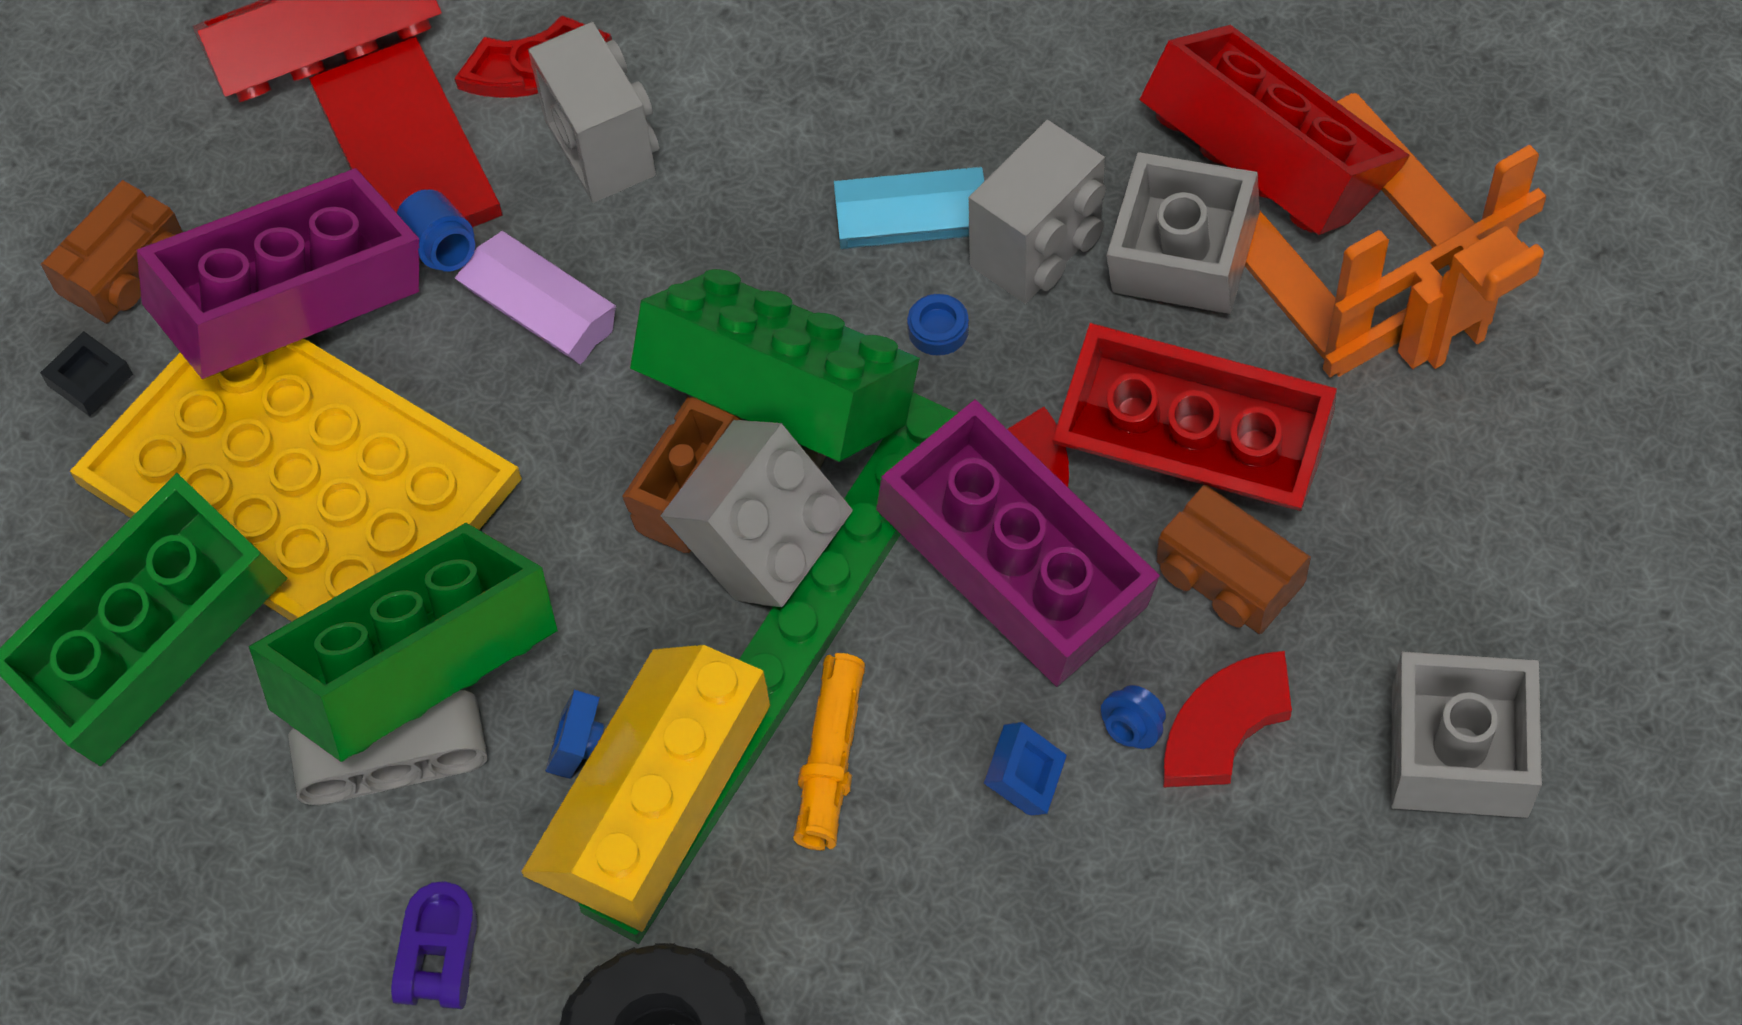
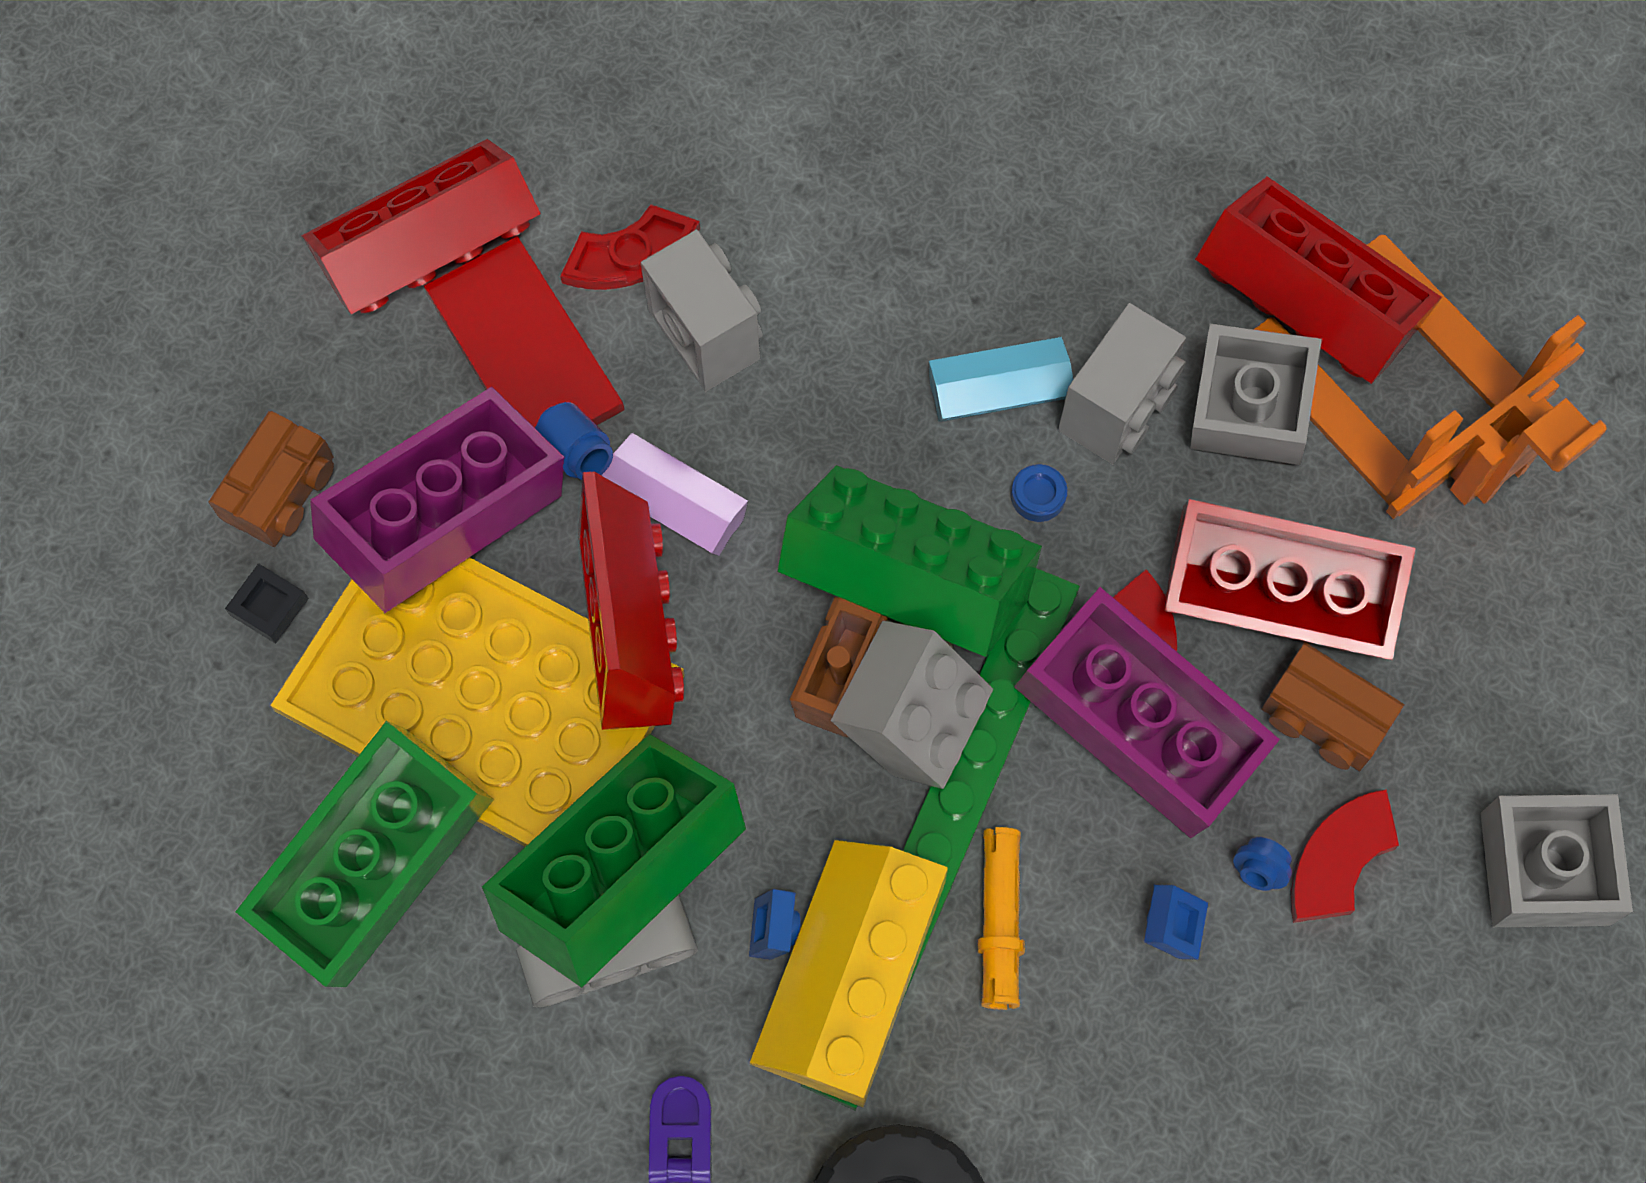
camera: 10 degrees left, 10 degrees up
(461, 390) = (626, 607): none -> red slope

